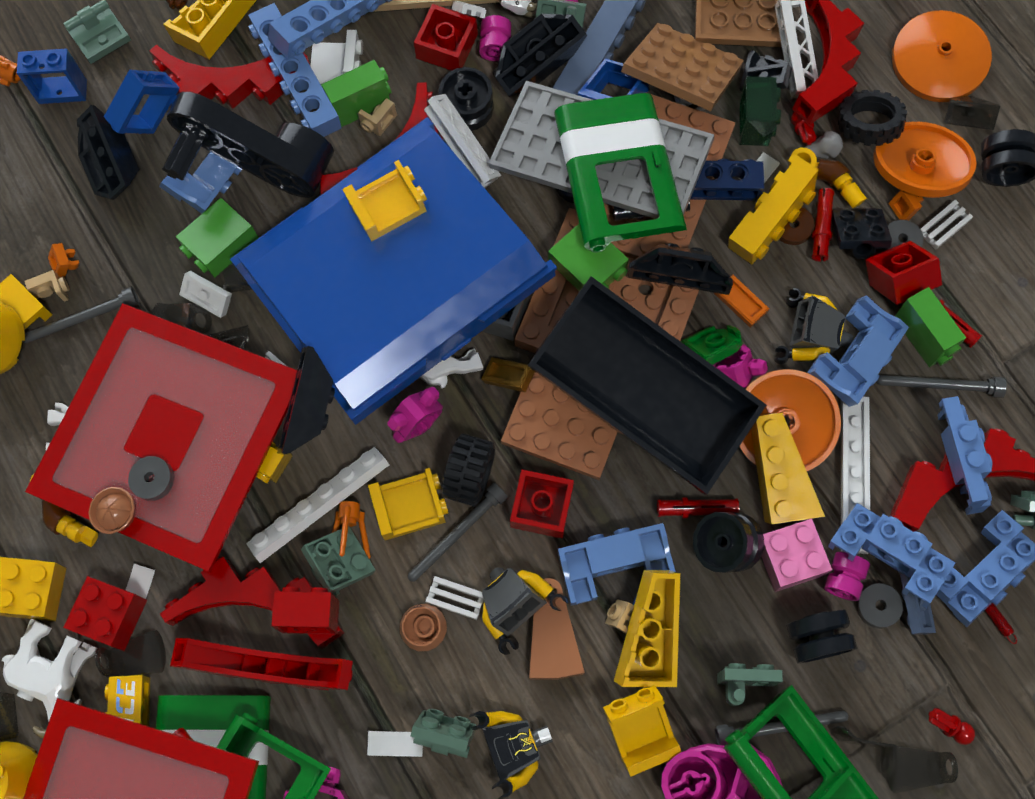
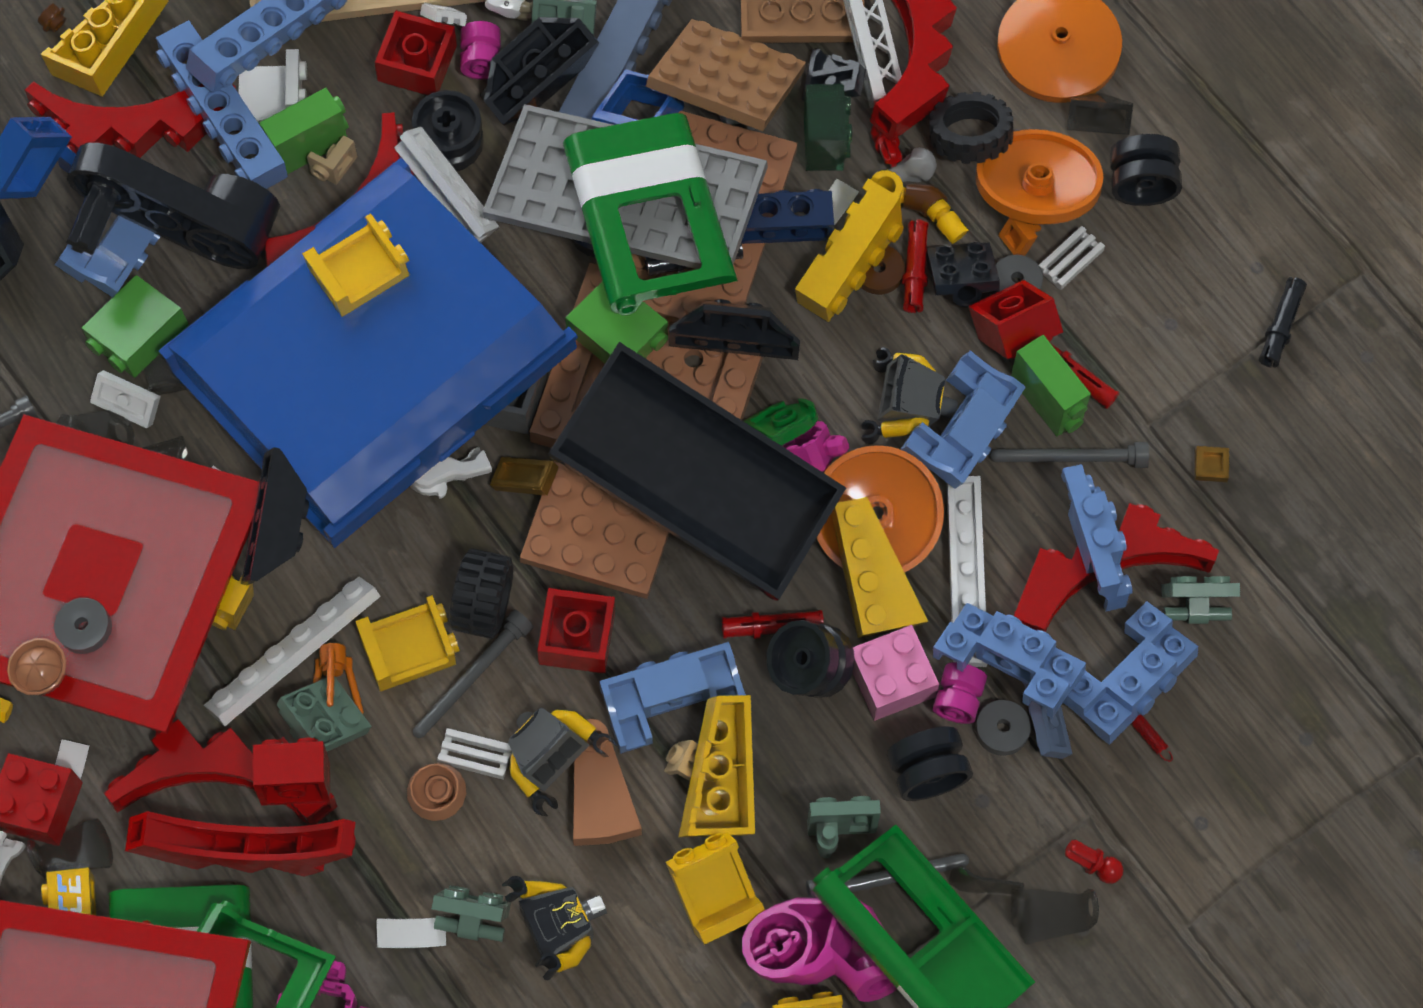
camera: 10 degrees left, 5 degrees down
(415, 415) = (409, 531): dark pink piece -> none
(744, 303) = (819, 369): orange tile -> none

